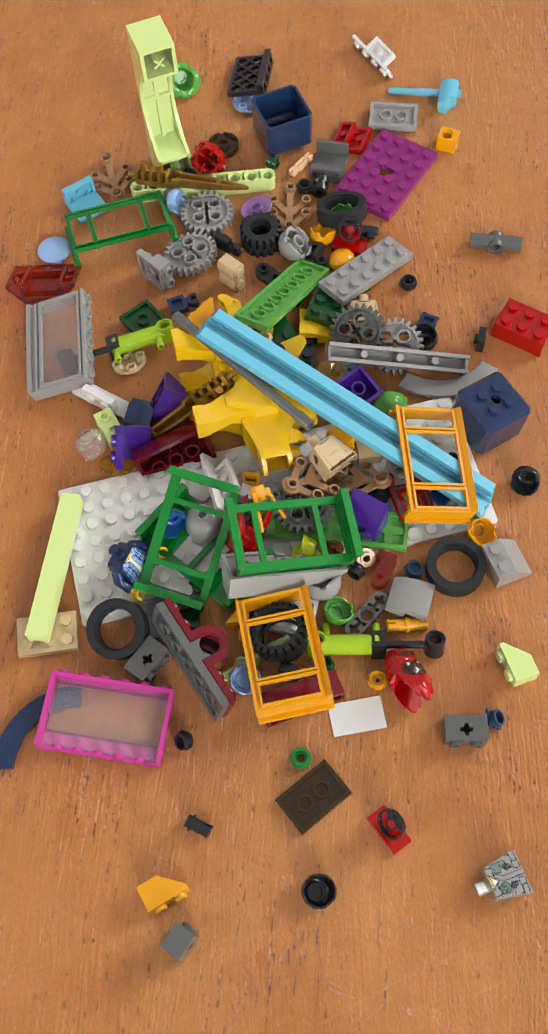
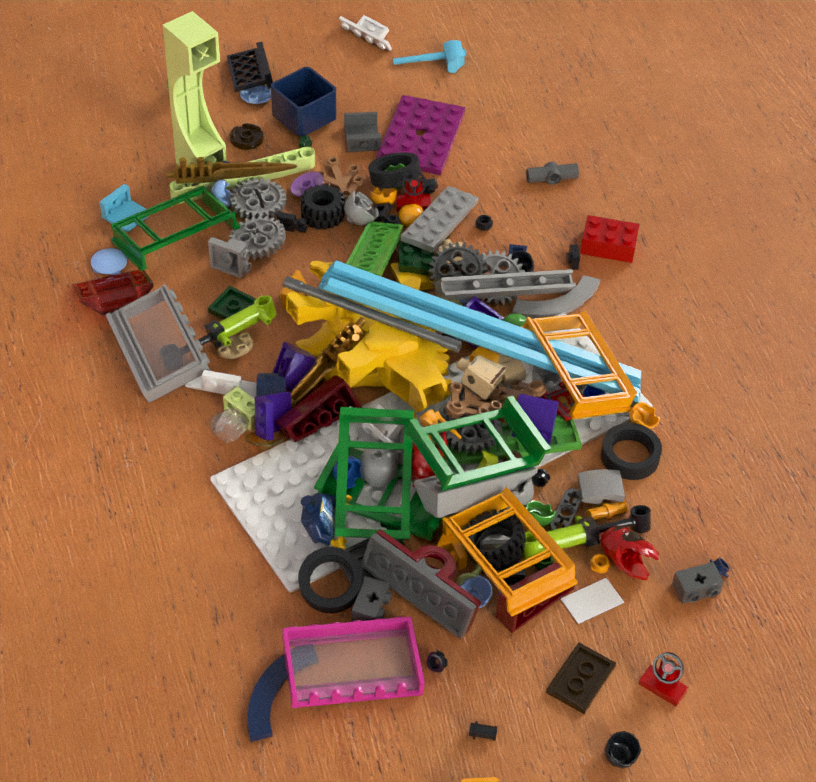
camera: 25 degrees left, 15 degrees down
(54, 568) = (243, 541): yellowish green tile -> none
(63, 637) = (256, 607): tan plate -> none
(116, 192) = (152, 197): medium nougat plant -> none
(181, 304) = (266, 285): dark blue plate -> none
(208, 158) = (243, 146): red head -> none
(231, 272) = (309, 244): tan brick -> none
(266, 273) = (342, 242): black plate -> none
(297, 752) = (555, 642): green plate -> none
(300, 164) = (333, 140): light nougat axle -> none
(304, 186) = (346, 158): black plate -> none
(320, 186) = (362, 155): black wheel -> none
(356, 136) = (381, 105): red slope -> none
(367, 551) = (550, 463): tan plate -> none
(381, 575) = (565, 475): clear red leg -> none
(393, 116) = (408, 82): light grey plate -> none
(414, 569) = (594, 462): dark blue plate -> none
(447, 140) = (469, 94): light orange brick -> none
(488, 422) = (614, 309): dark blue plate -> none
(503, 879) = (784, 693): light grey torso -> none
(505, 562) = (674, 437): light grey slope -> none
(517, 664) = (721, 517): yellowish green slope -> none
(525, 480) = (665, 365): black hair -> none

